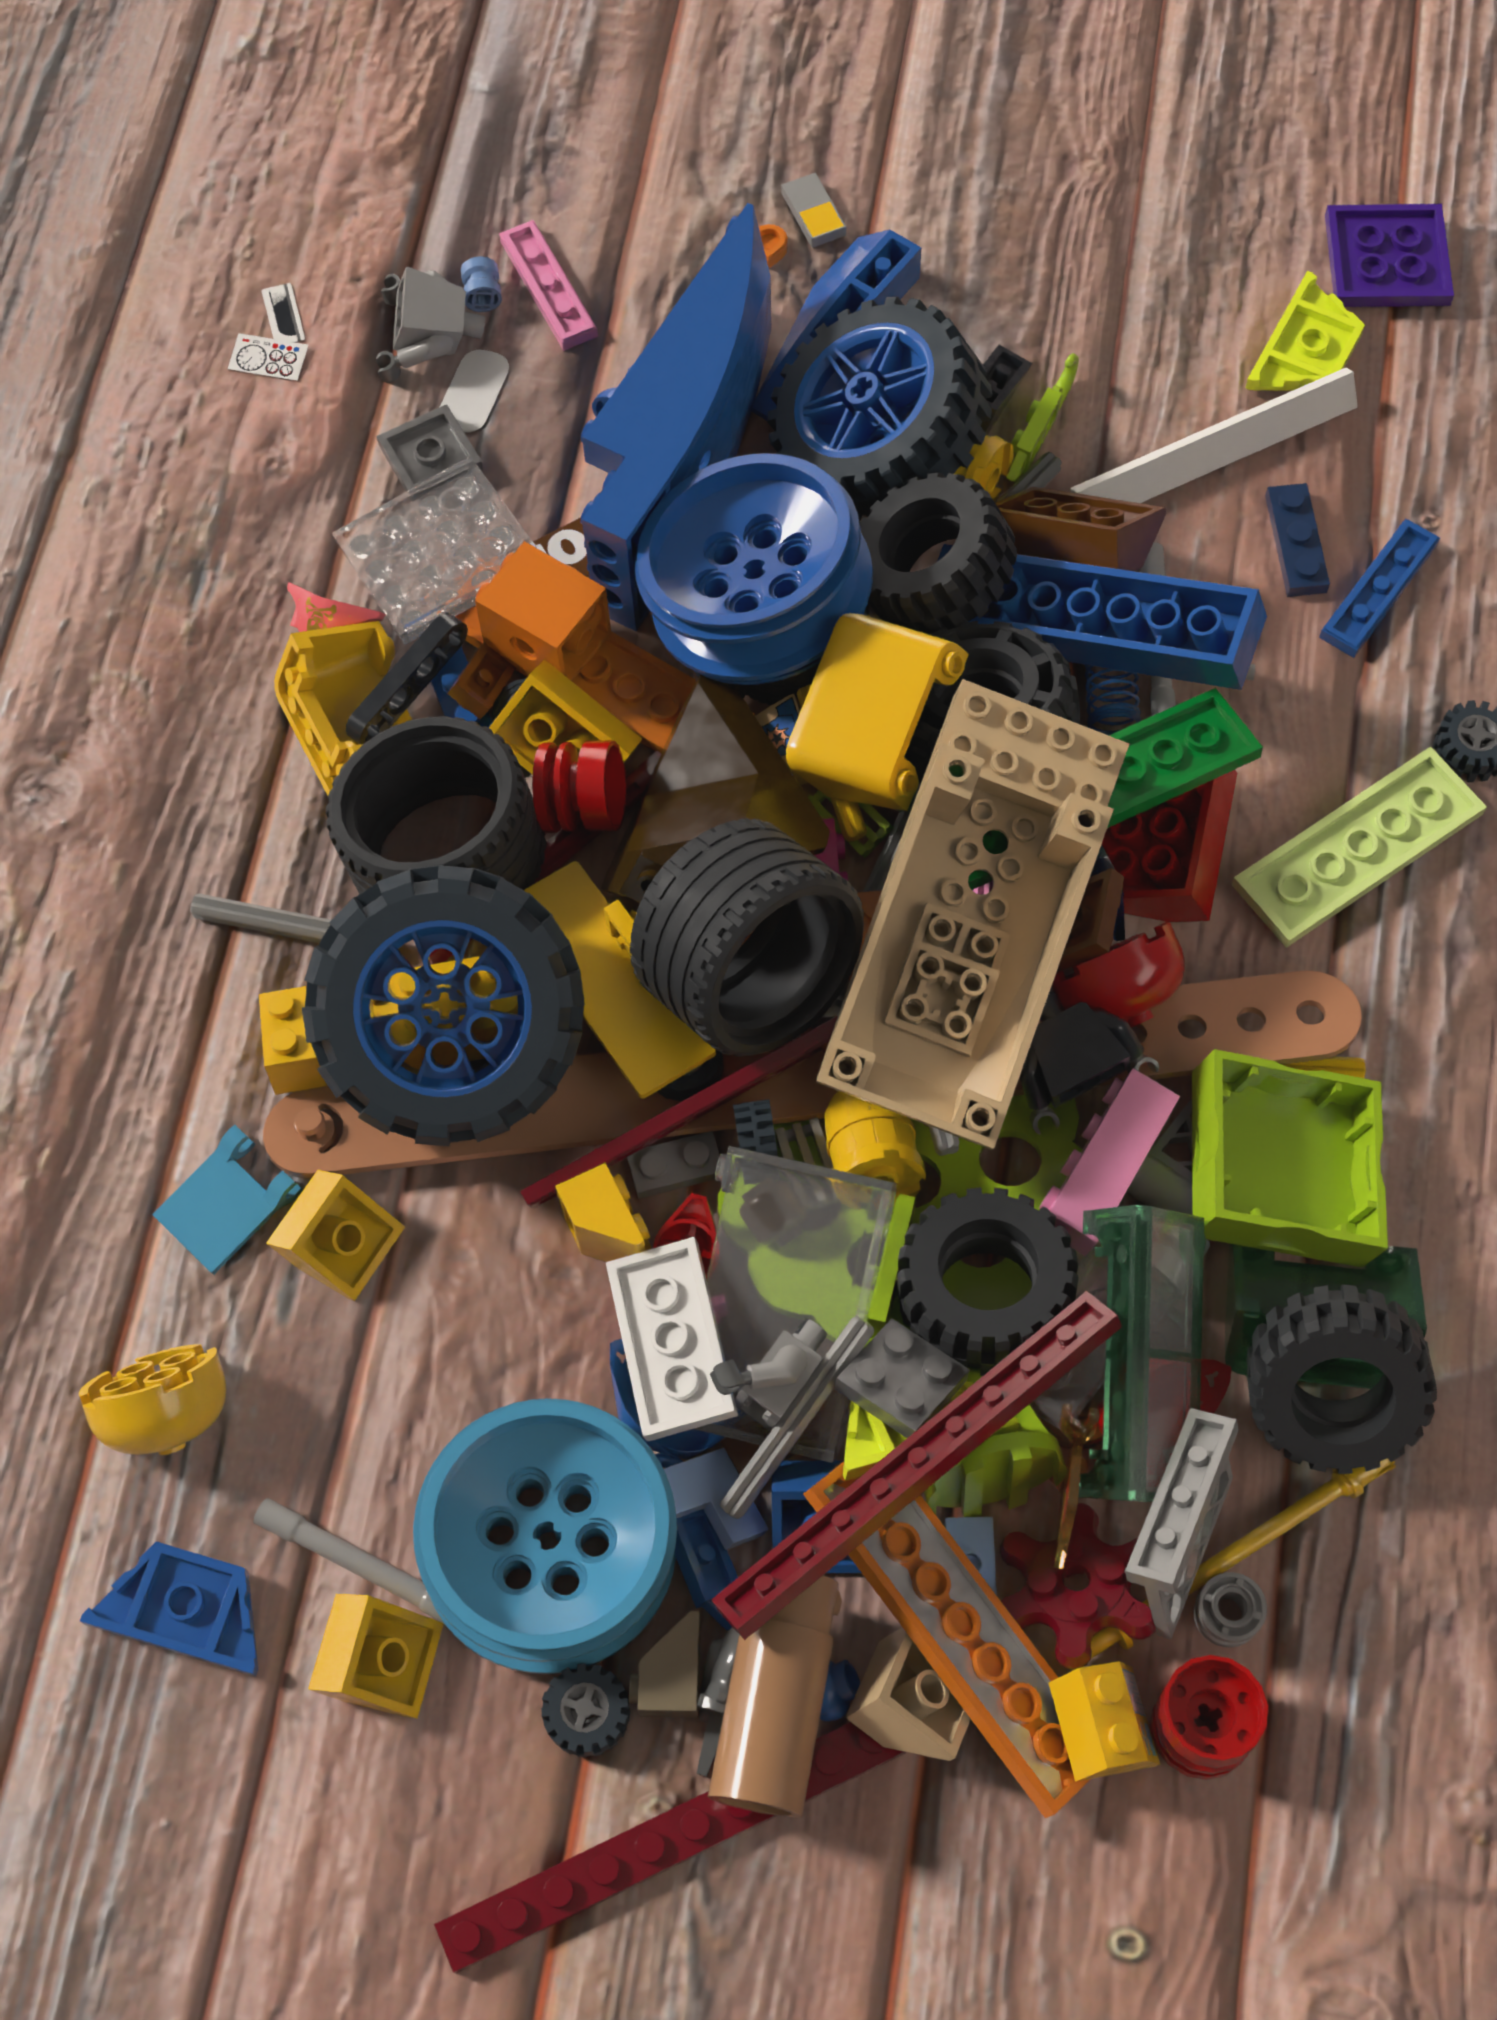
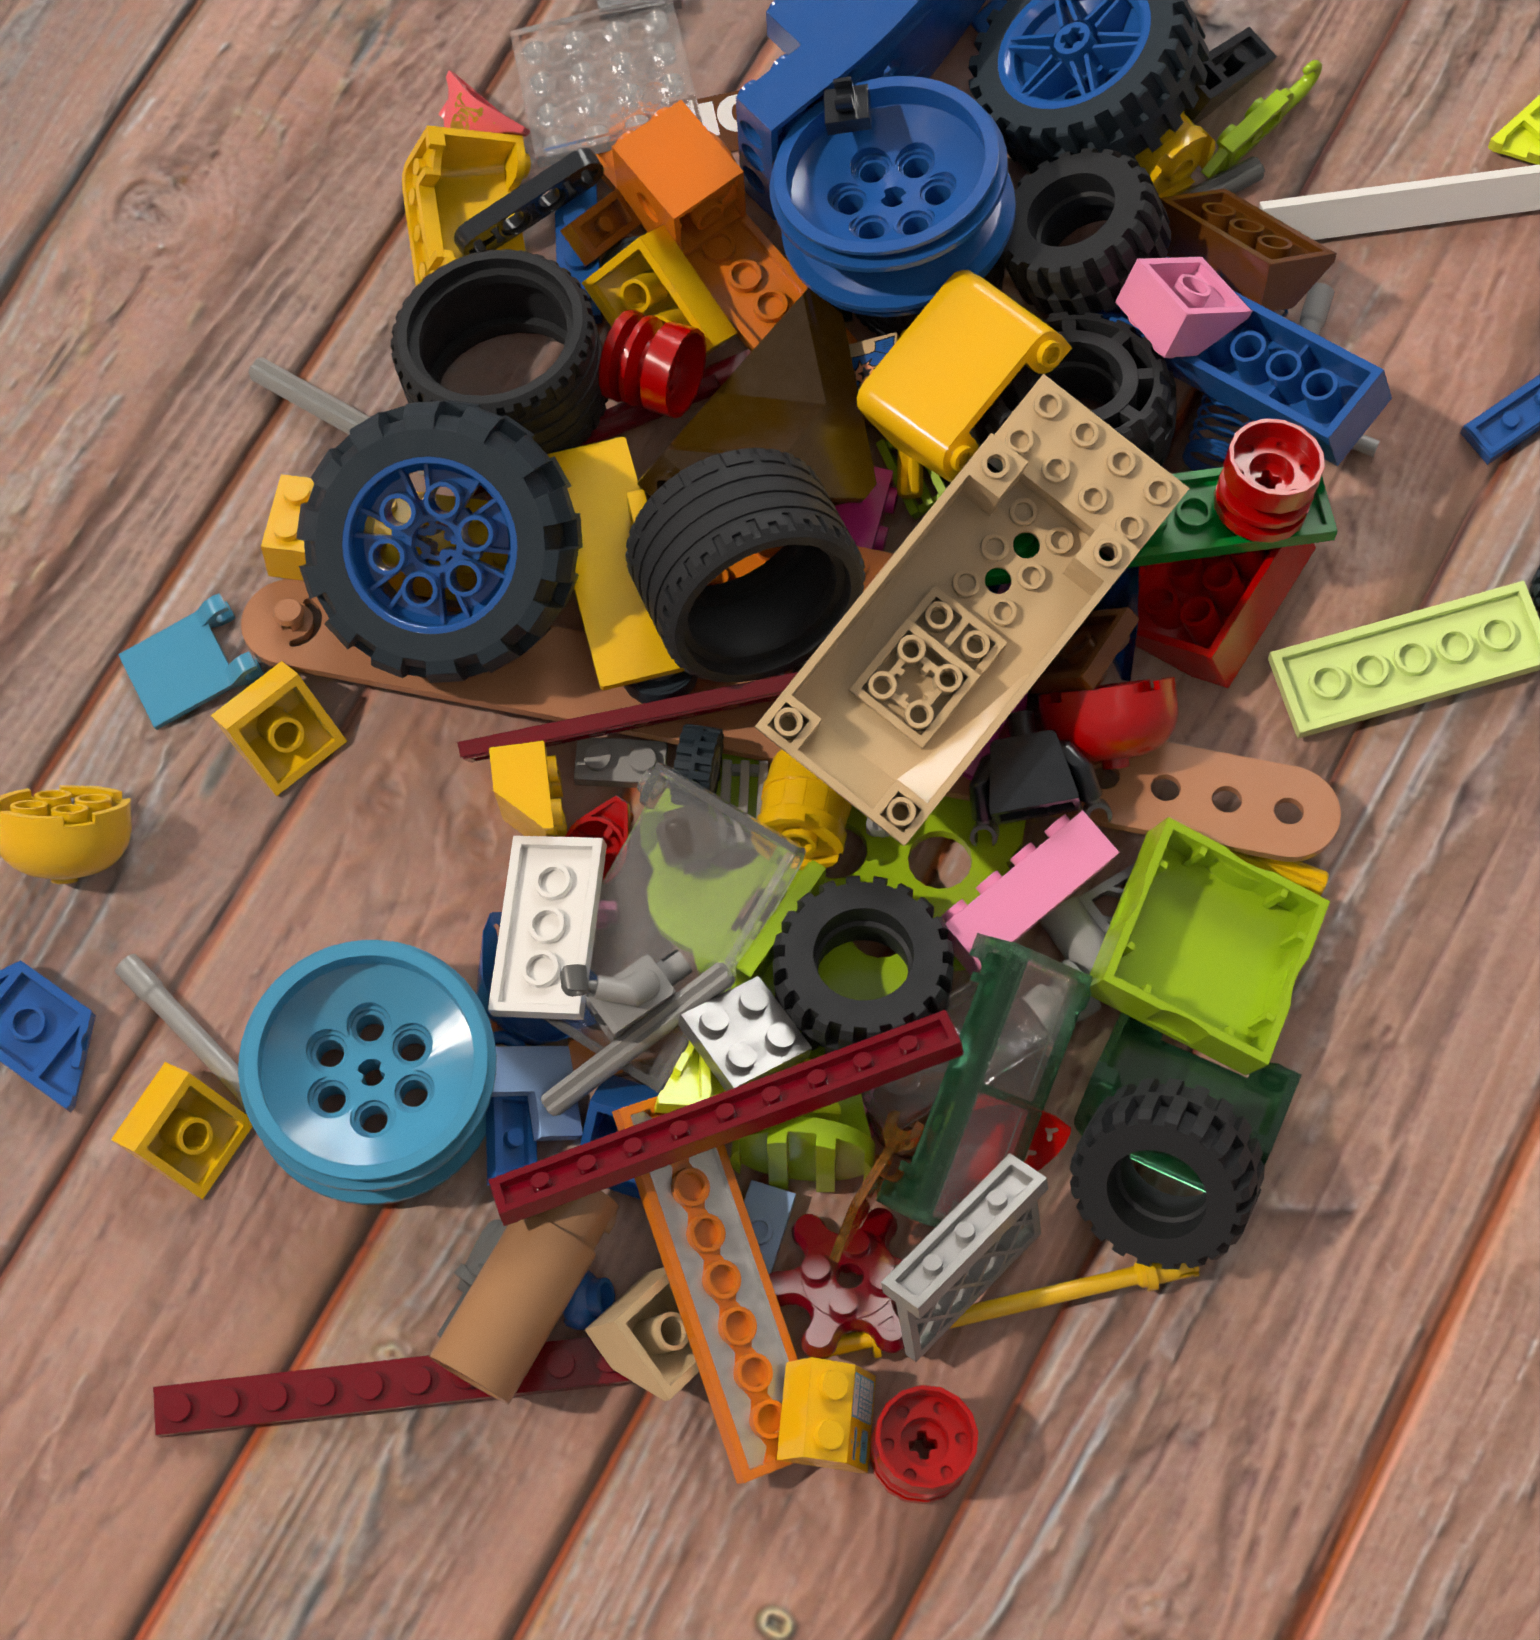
camera: 20 degrees right, 5 degrees up
(576, 1691) = (342, 1232): black wheel -> none
(670, 1673) = (444, 1235): dark tan slope -> none
(688, 499) = (847, 107): none -> black tile
(1047, 590) = (1180, 304): none -> bright pink slope
(1191, 718) = (1268, 480): none -> red wheel
(1247, 1596) = (992, 1332): light grey wheel -> none
(1297, 540) = (1477, 324): dark blue plate -> none

